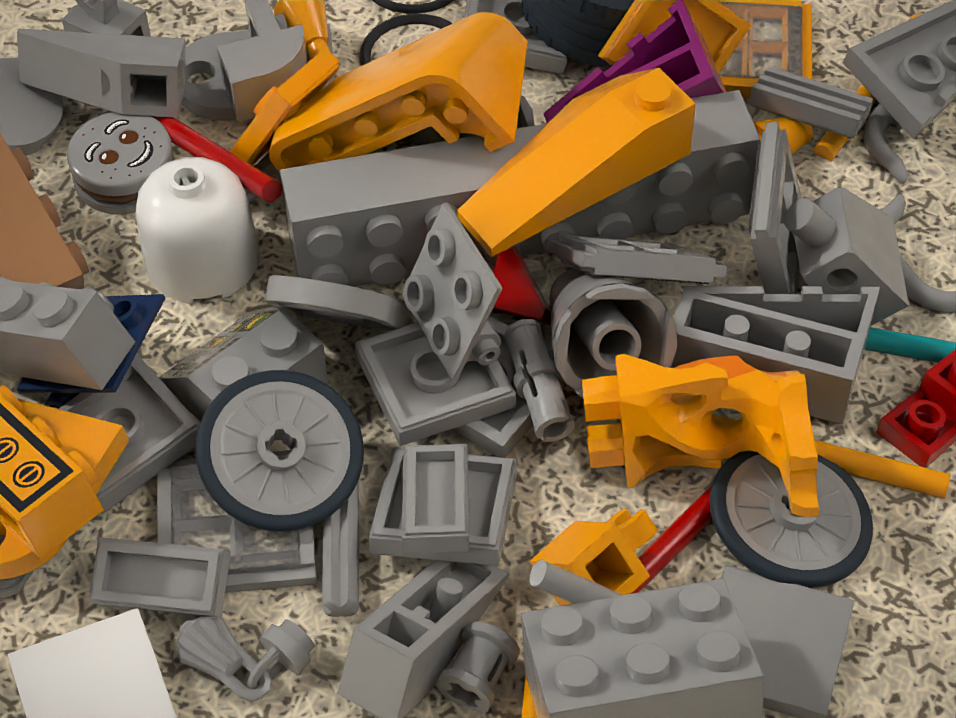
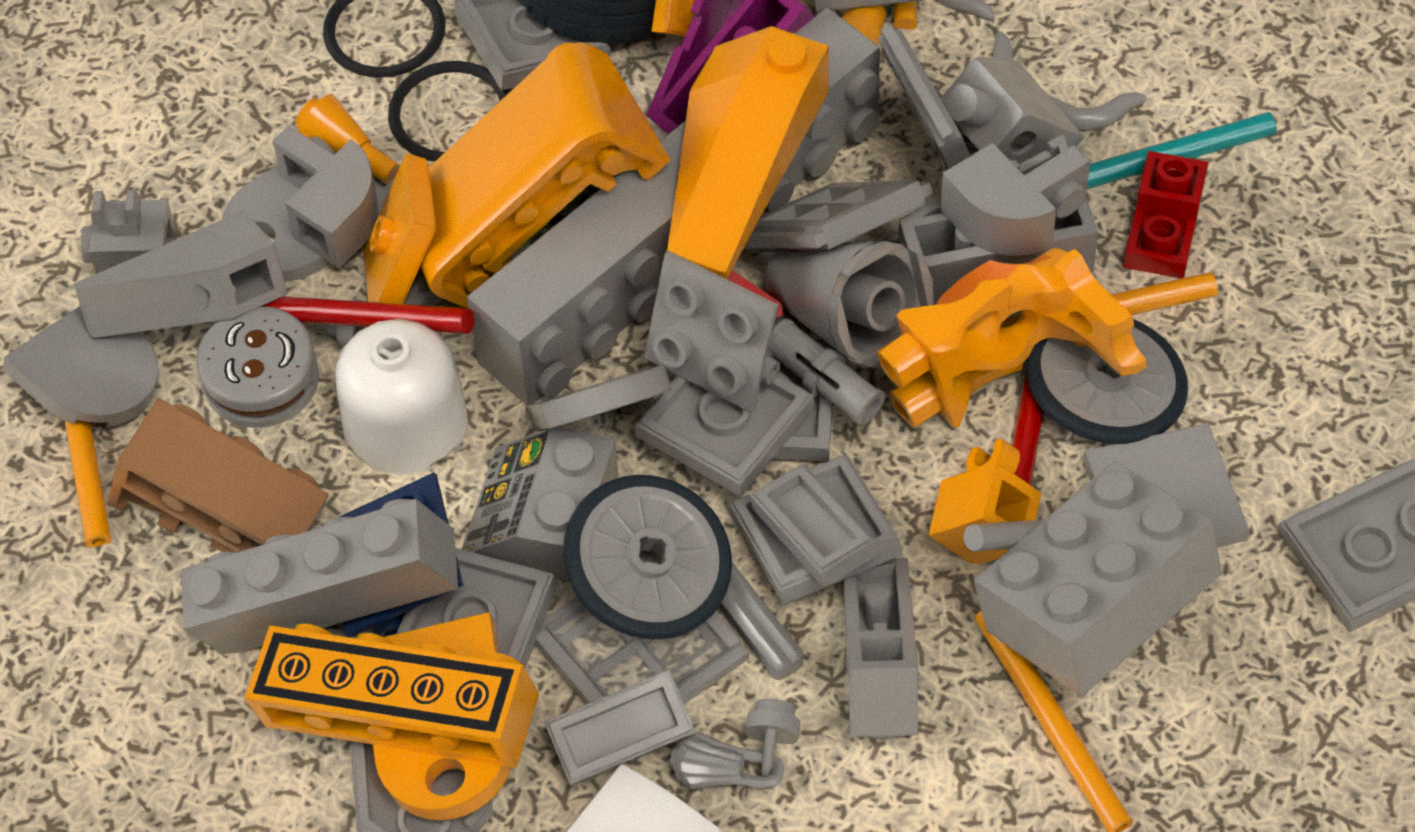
camera: 30 degrees left, 5 degrees up
(478, 666) = (946, 648): light grey bush -> none
(782, 322) = (1011, 210): none -> light grey brick

